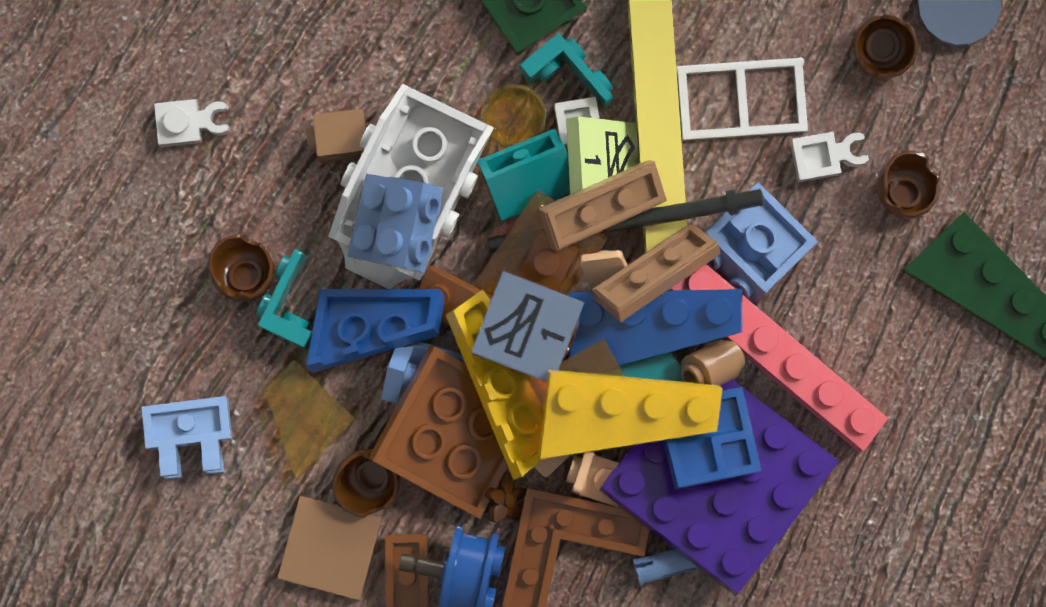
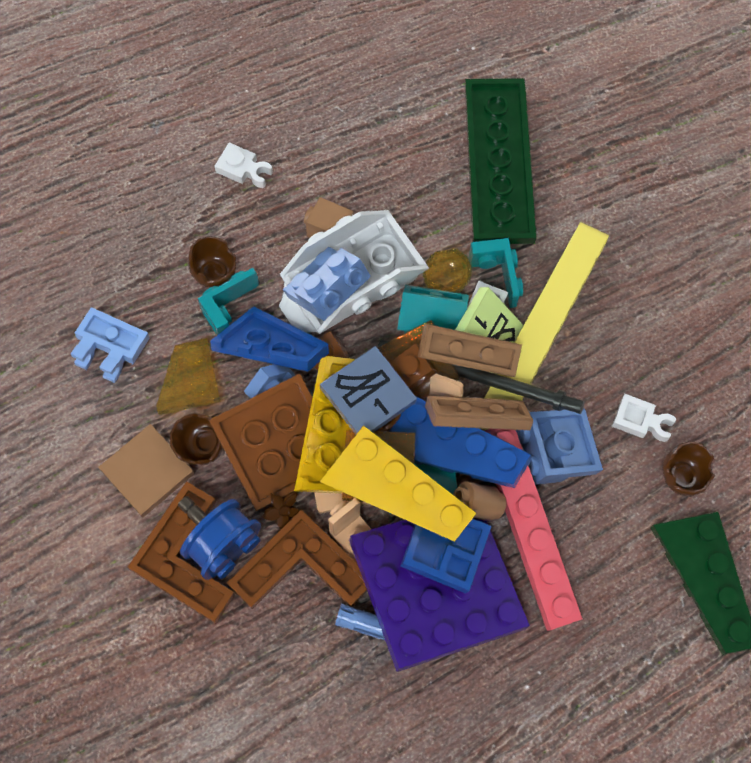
camera: 30 degrees right, 15 degrees down
(744, 129) = (594, 374): white window -> none
(885, 46) = (723, 372): reddish brown hair -> none

